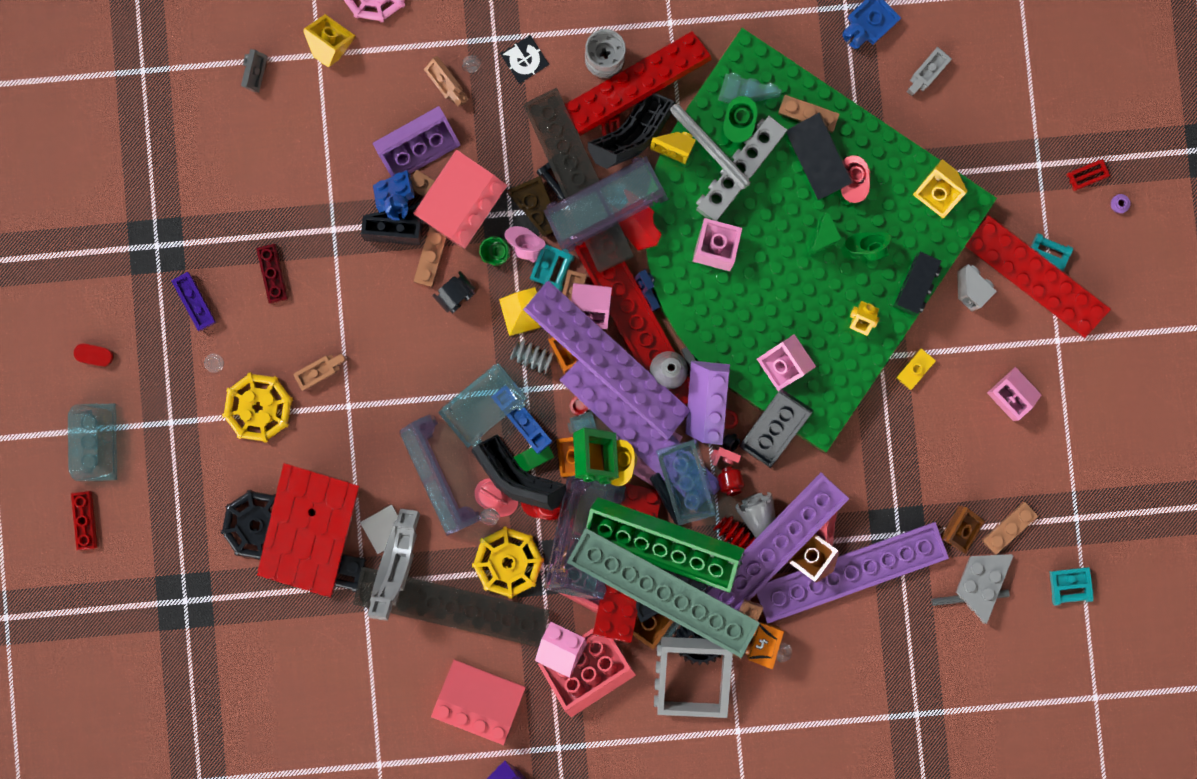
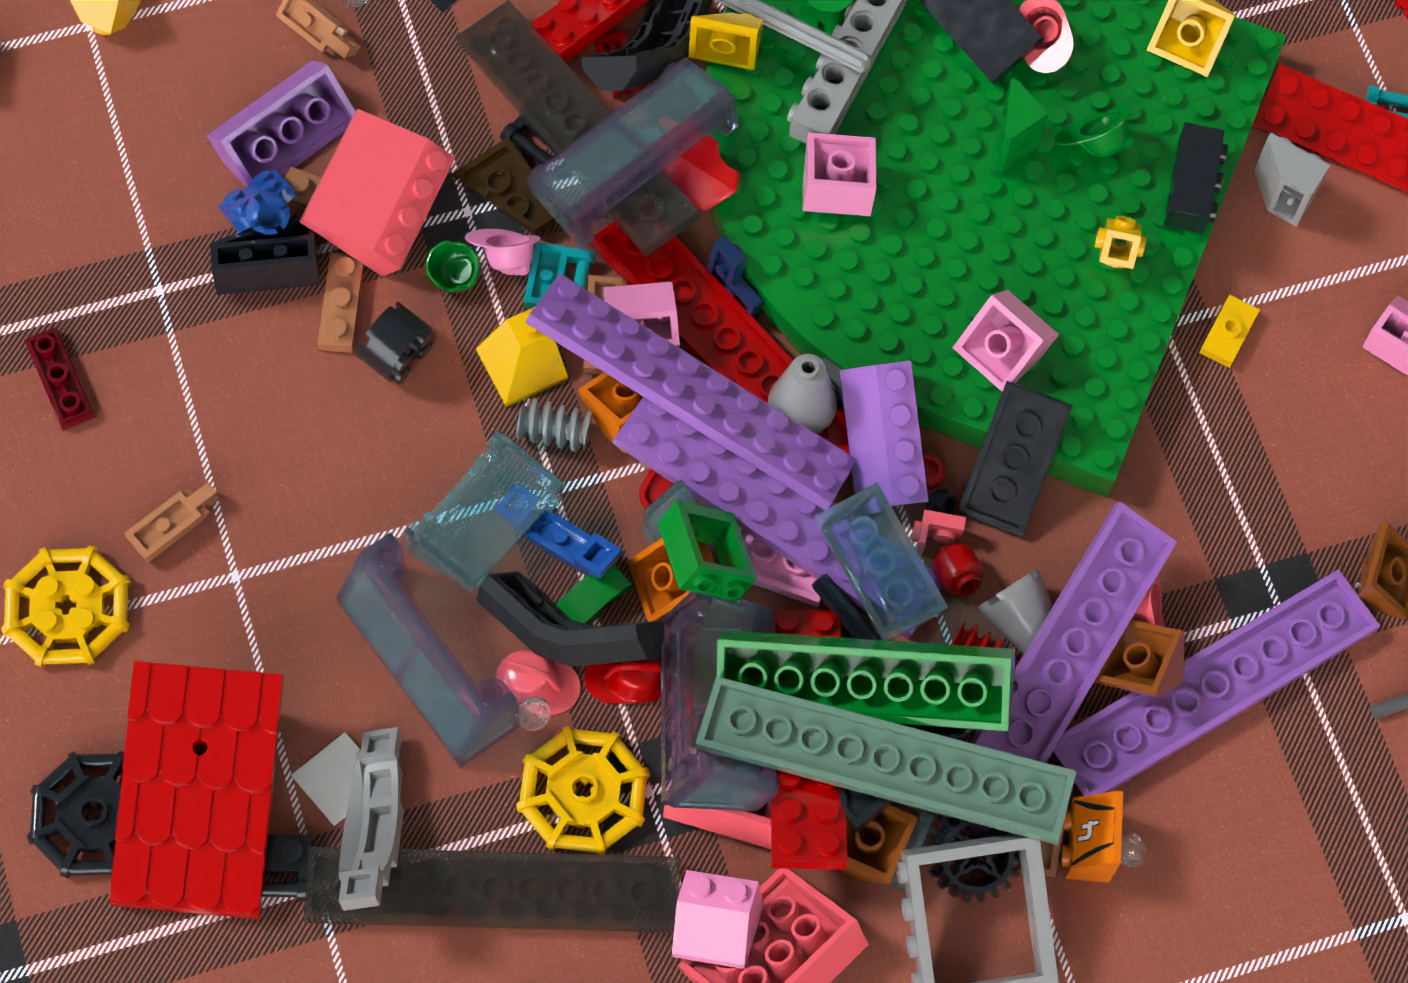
camera: 15 degrees left, 20 degrees down
(626, 462) = (765, 559): yellow piece -> none

